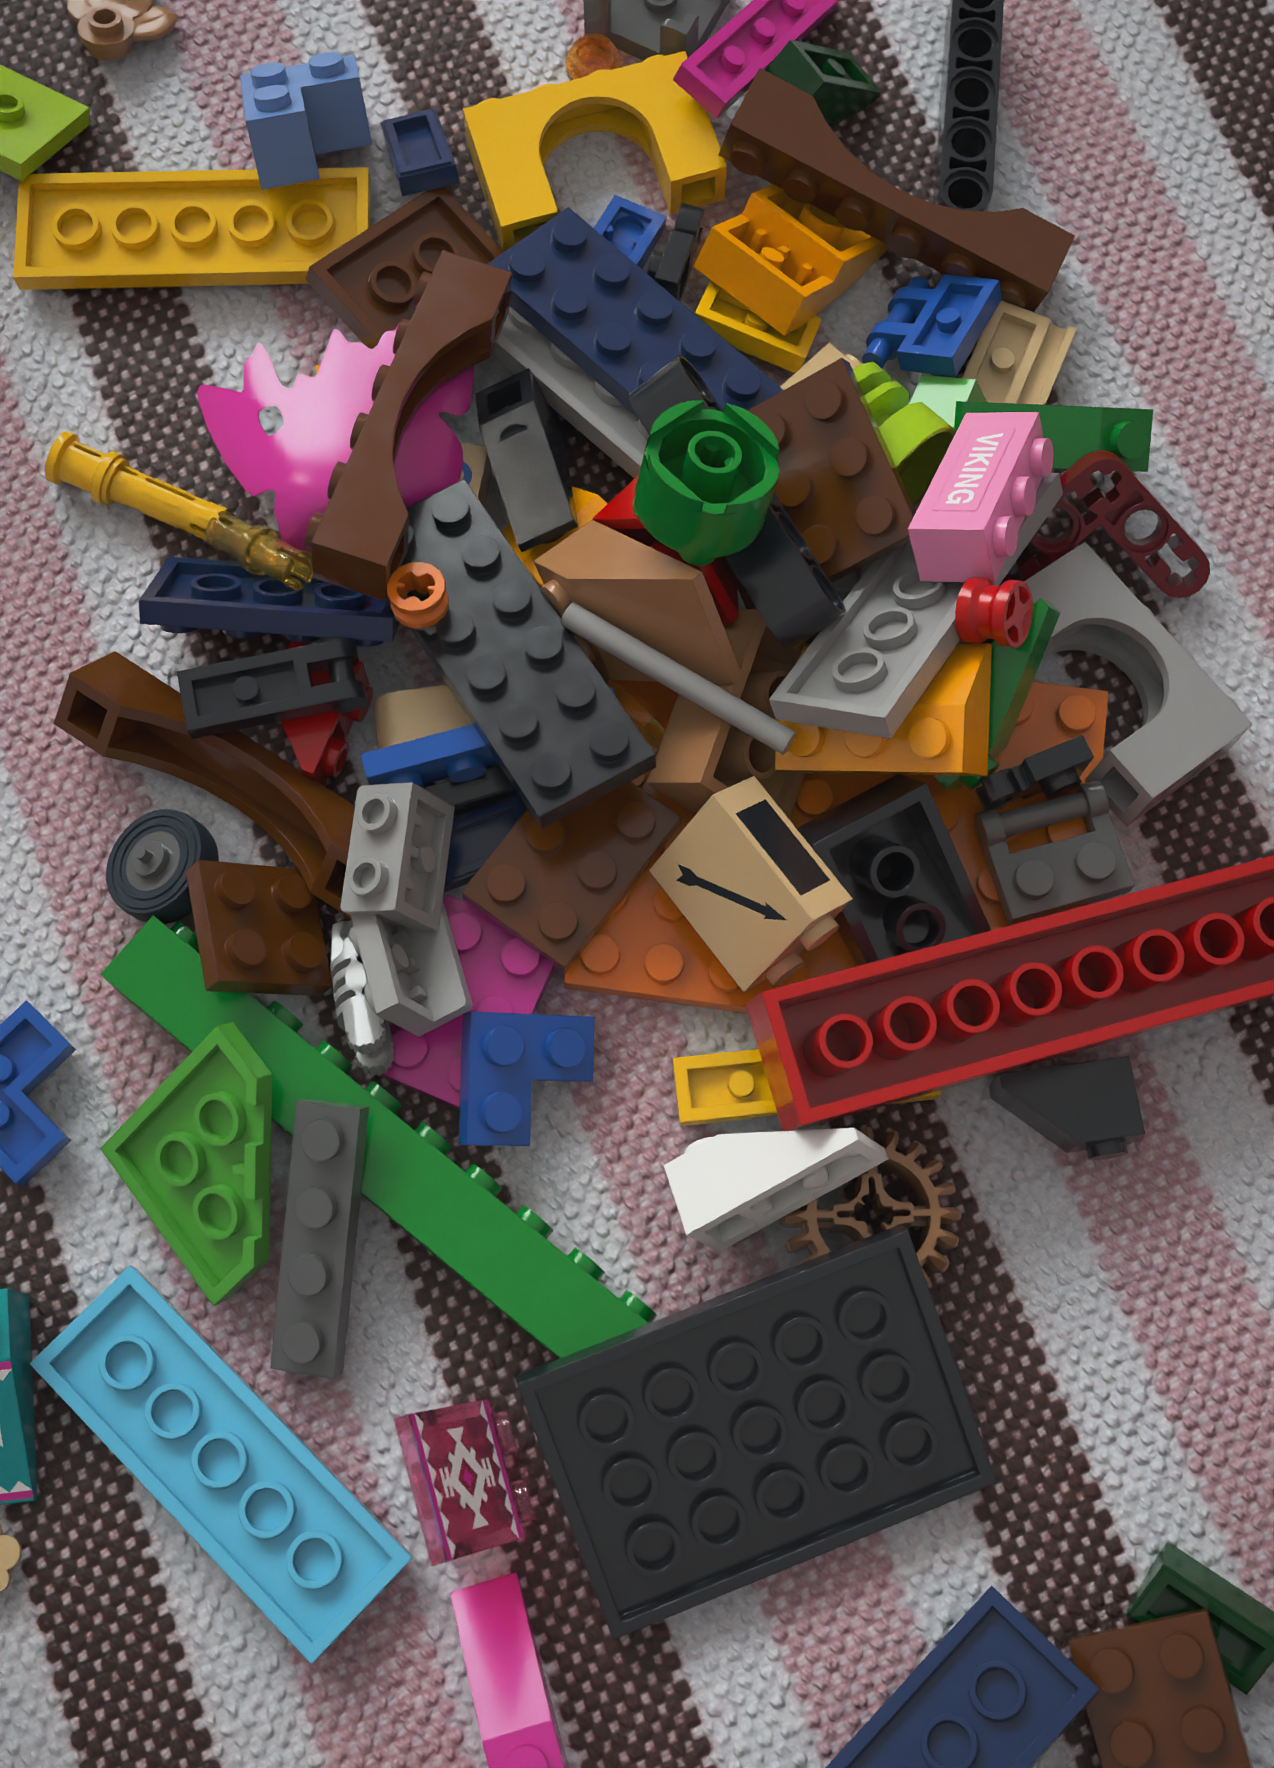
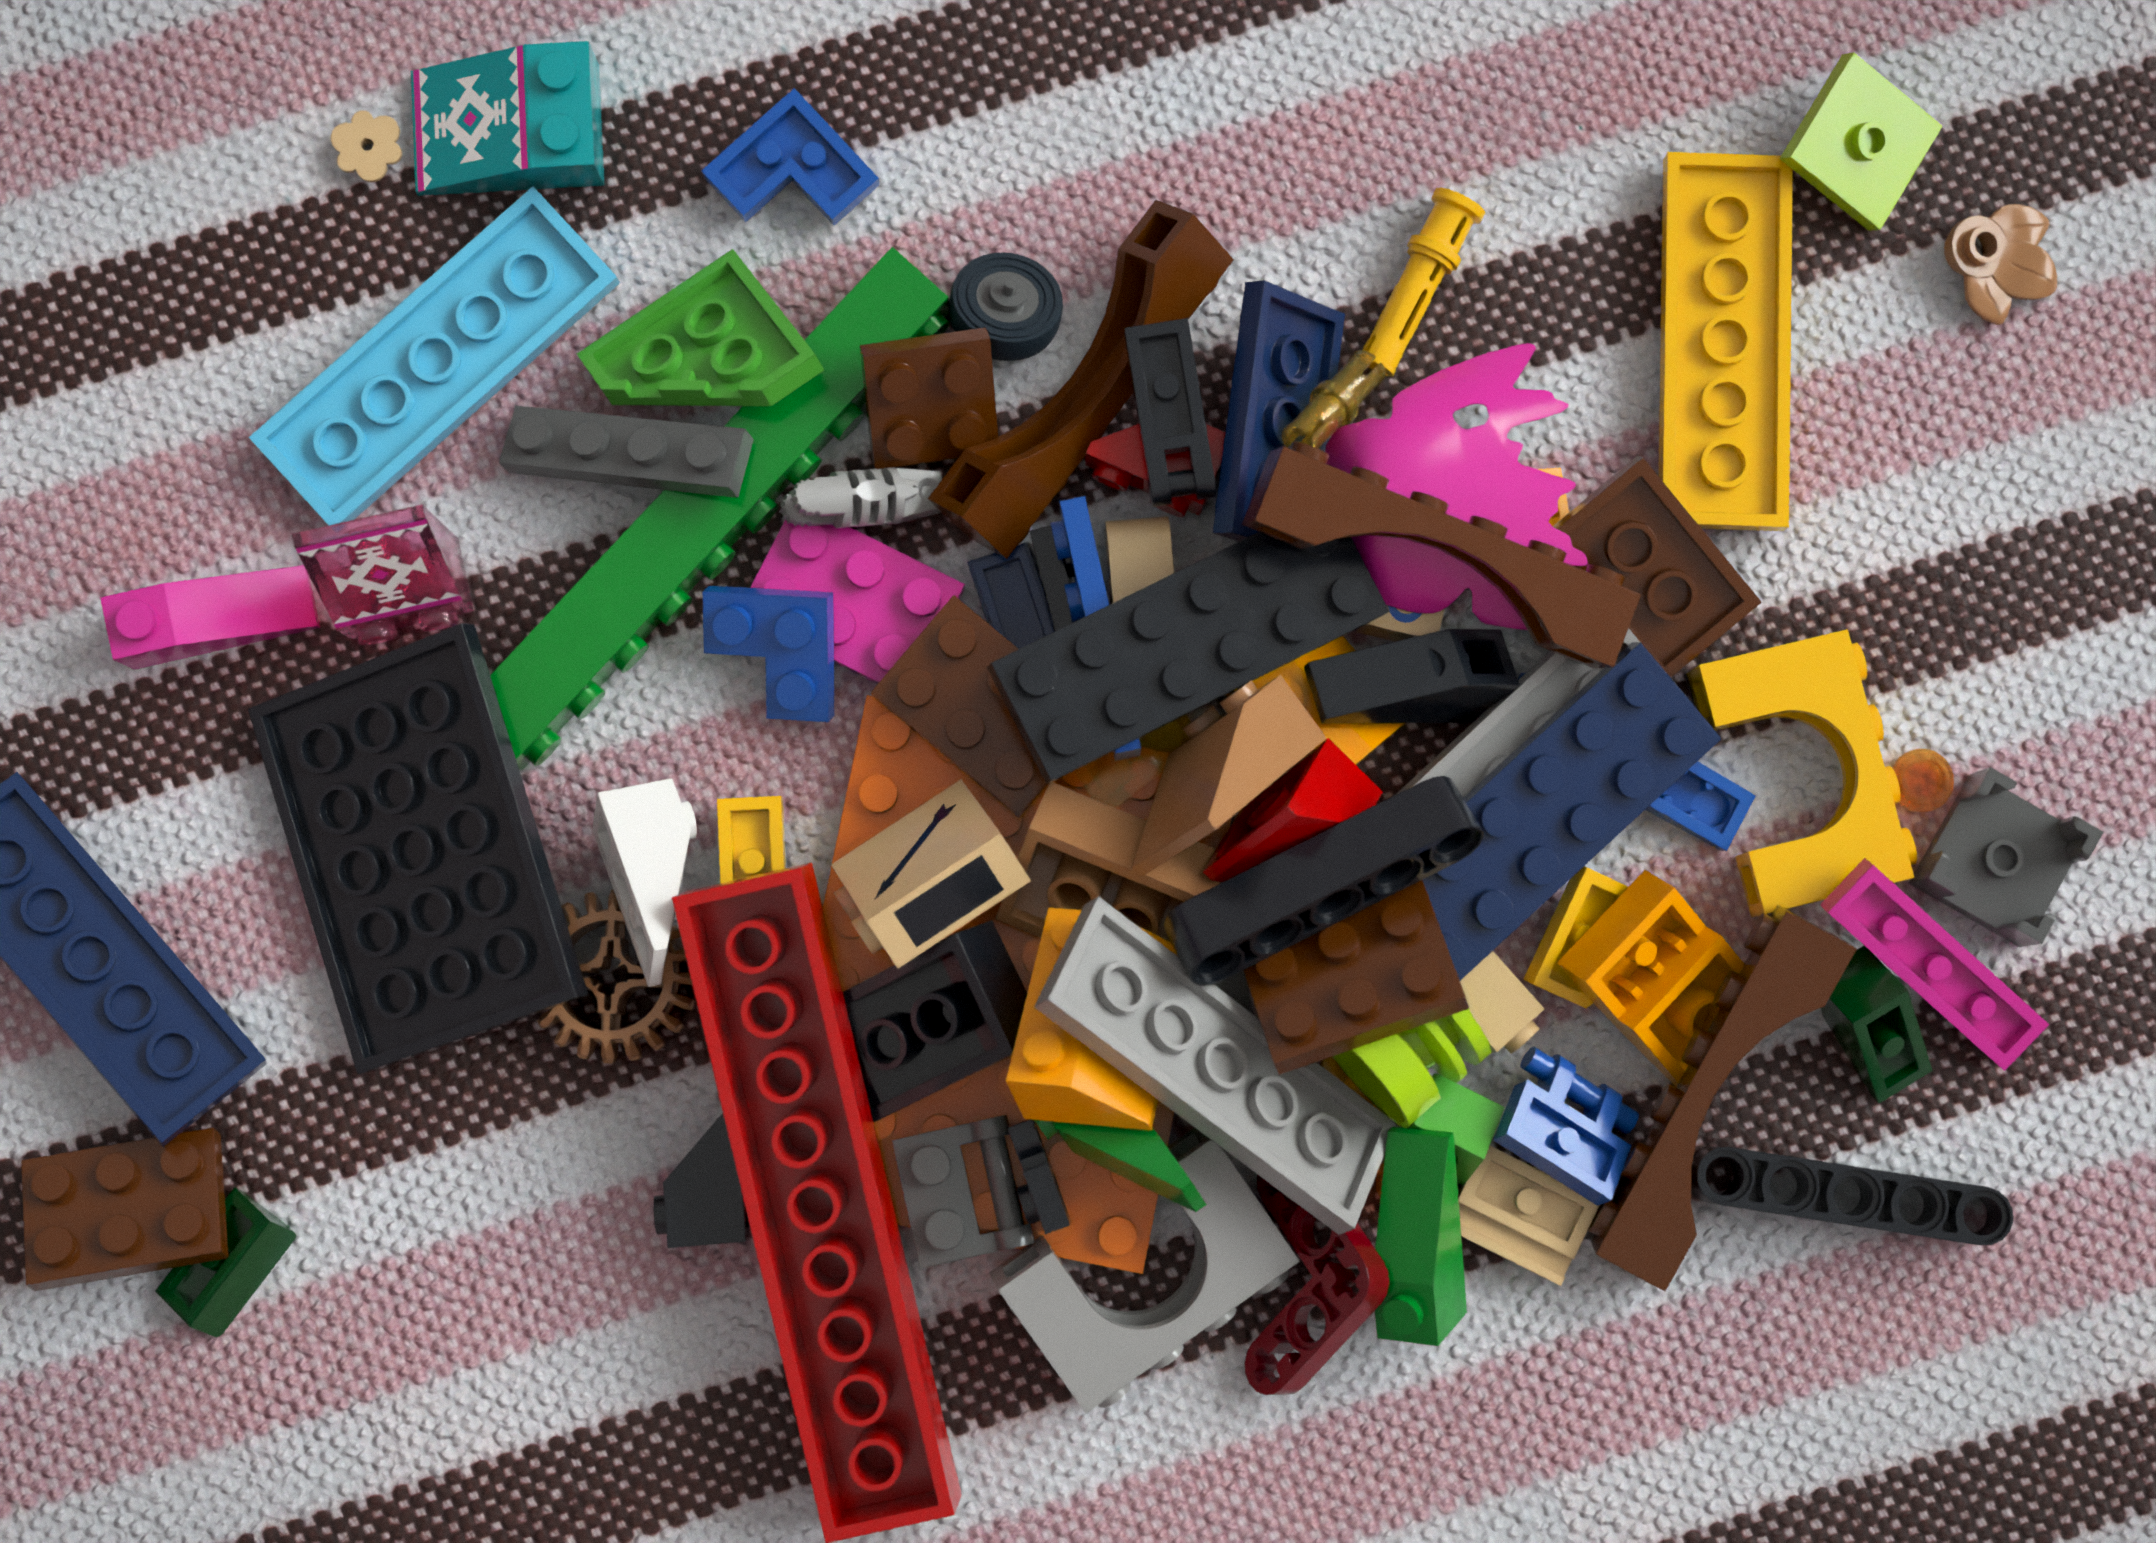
camera: 90 degrees right, 10 degrees up
(302, 114) = (1851, 449): medium blue brick -> none
(398, 855) = (981, 531): light grey bracket -> none
(411, 974) = (881, 540): light grey bracket -> none
(412, 611) = (1221, 547): orange bush -> none
(419, 152) = (1804, 582): dark blue tile -> none
(674, 265) = (1652, 849): black plate -> none
(678, 678) = (1137, 810): light grey bar -> none
(706, 480) = (1346, 838): green brick -> none
(980, 496) = (1316, 1135): bright pink brick -> none
(994, 612) = (1173, 1129): red wheel -> none

